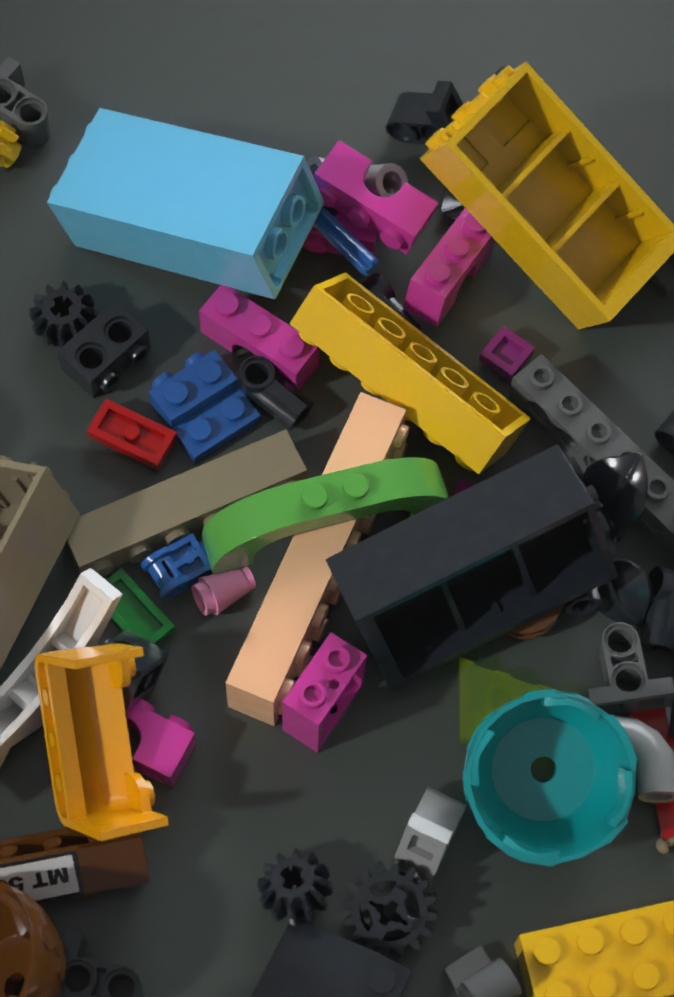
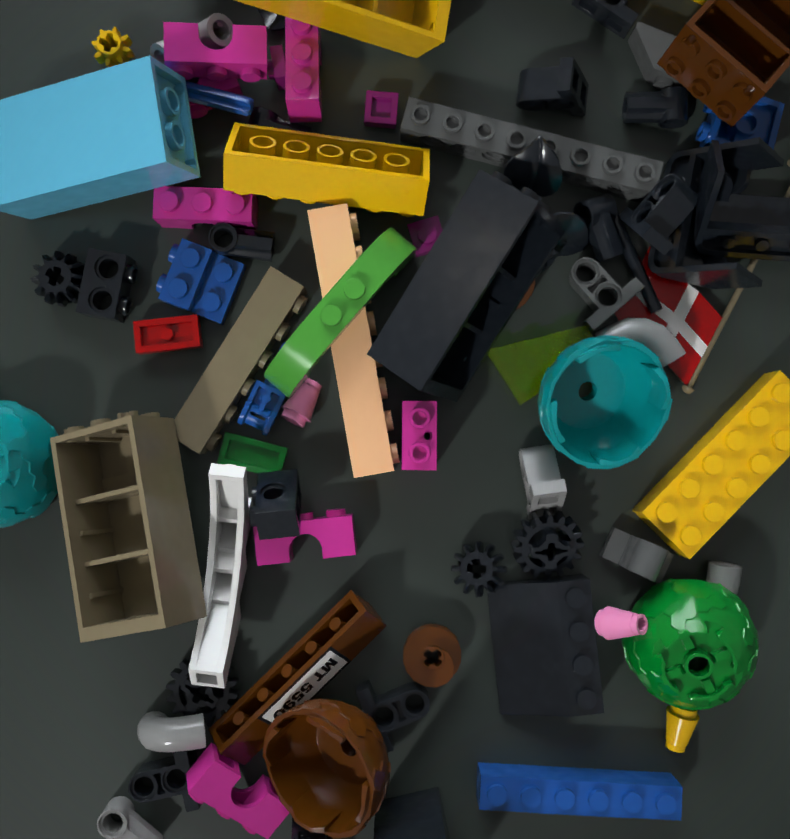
camera: 30 degrees left, 20 degrees up
(91, 743) = (297, 576): light orange windscreen -> none
(162, 968) = (431, 671): none -> reddish brown piece
(273, 134) = (112, 48): none -> yellow gear
(424, 247) = (276, 66): none -> magenta plate

